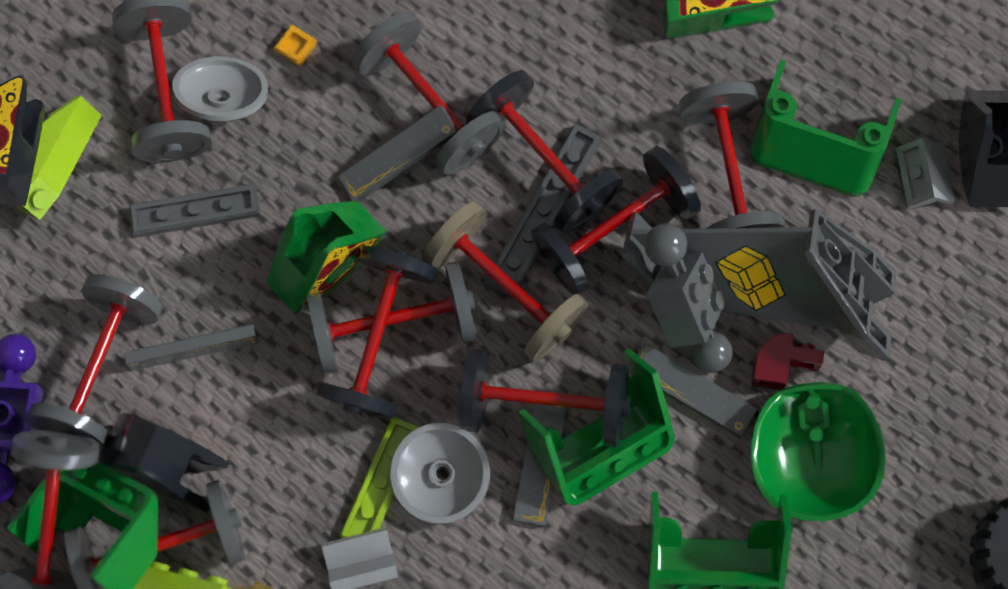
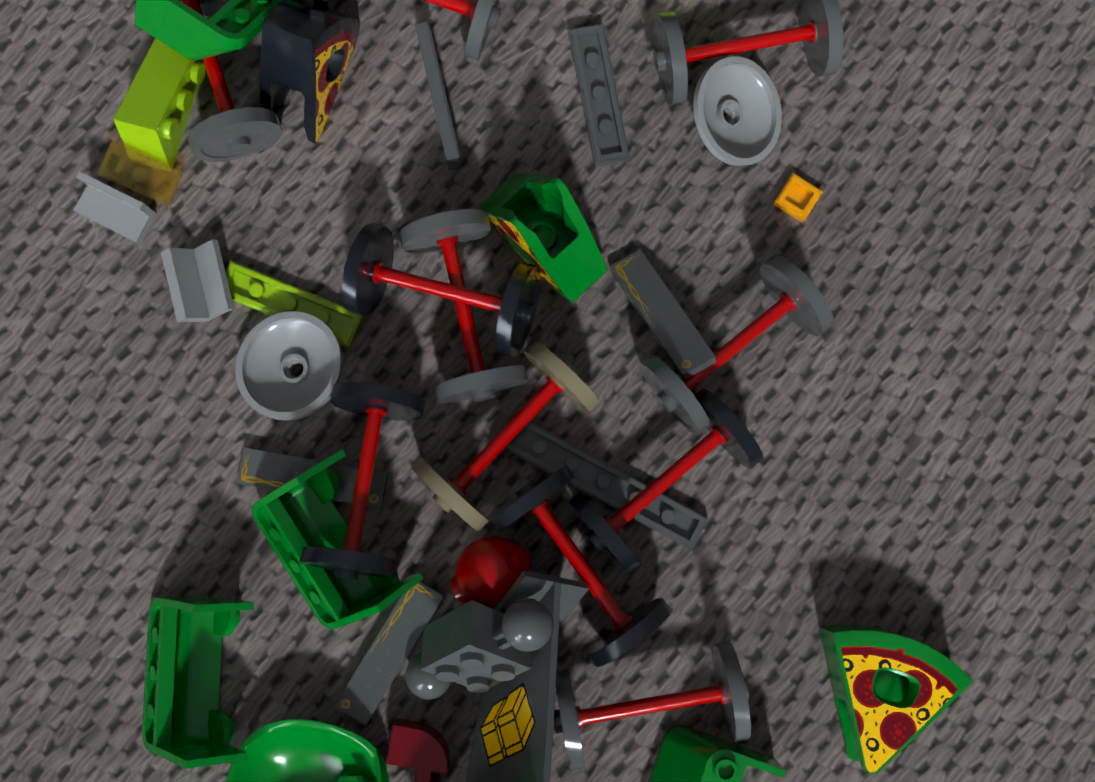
camera: 85 degrees right, 10 degrees up
(622, 298) = (488, 570): none -> red brick

